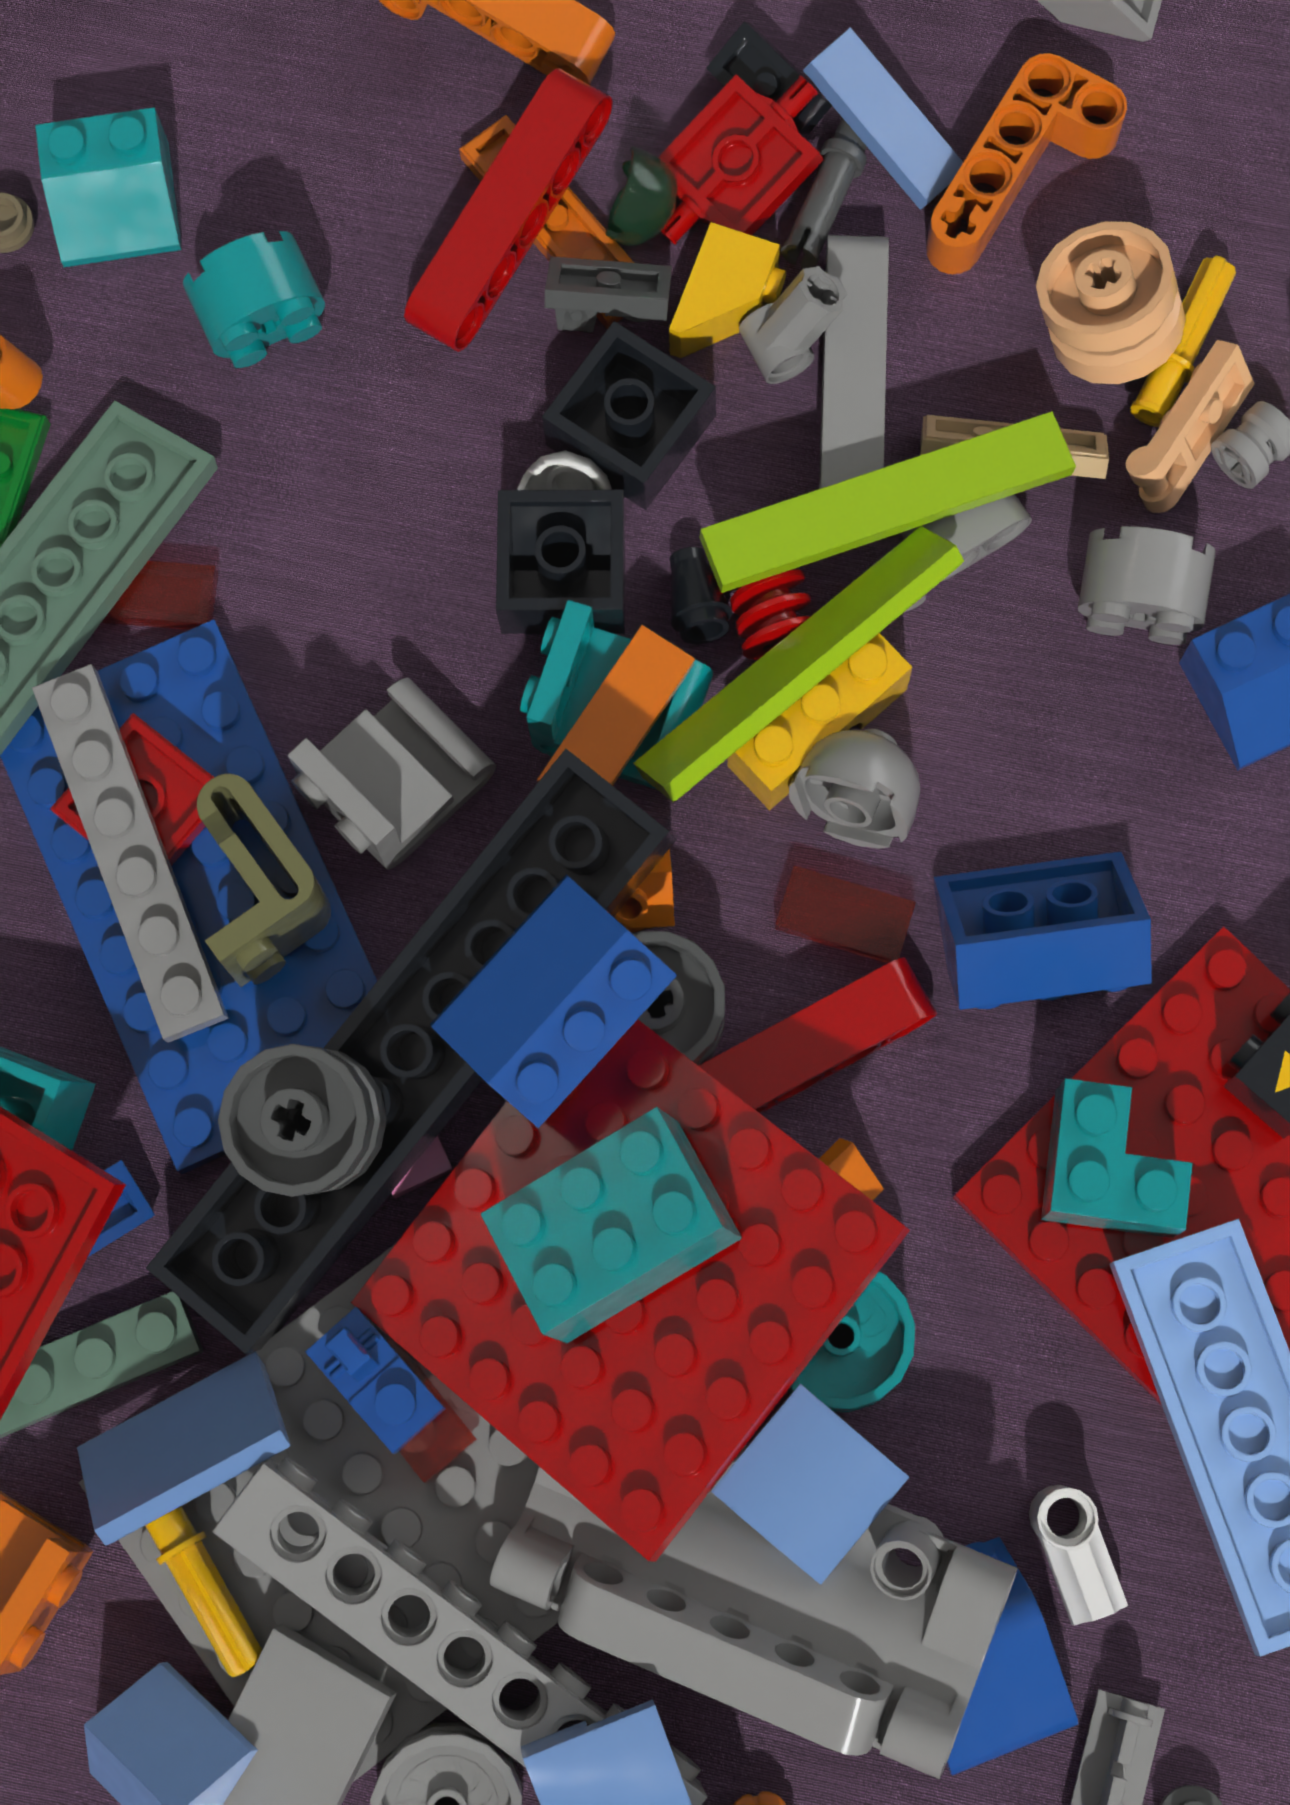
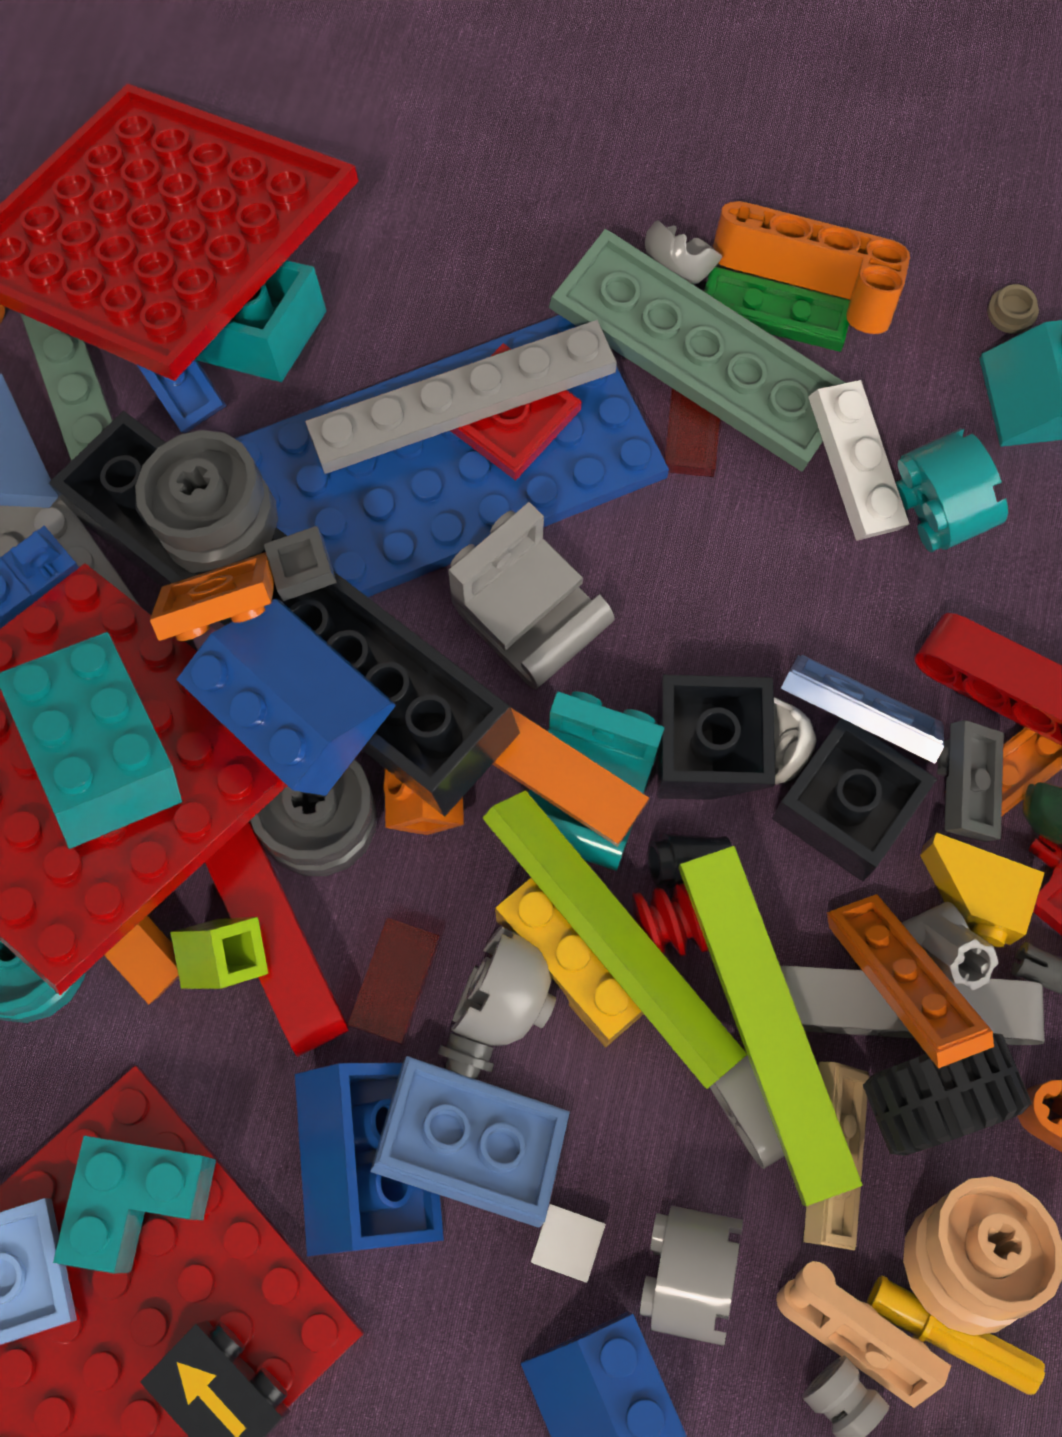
camera: 85 degrees right, 5 degrees down
(208, 400) = (858, 460): none -> white plate
(262, 936) = (426, 495): olive piece -> none
(383, 1002) = (300, 563): none -> dark grey plate
(432, 1091) = (226, 592): none -> orange plate
(524, 399) = (865, 707): none -> tile
(834, 1092) = (219, 953): none -> lime brick
(837, 357) = (910, 981): none -> orange tile
(930, 829) = (466, 1056): none -> dark grey plate
(954, 327) = (930, 1106): none -> black tyre
(1022, 815) = (471, 1142): none -> medium blue tile
(1116, 721) = (568, 1243): none -> white tile

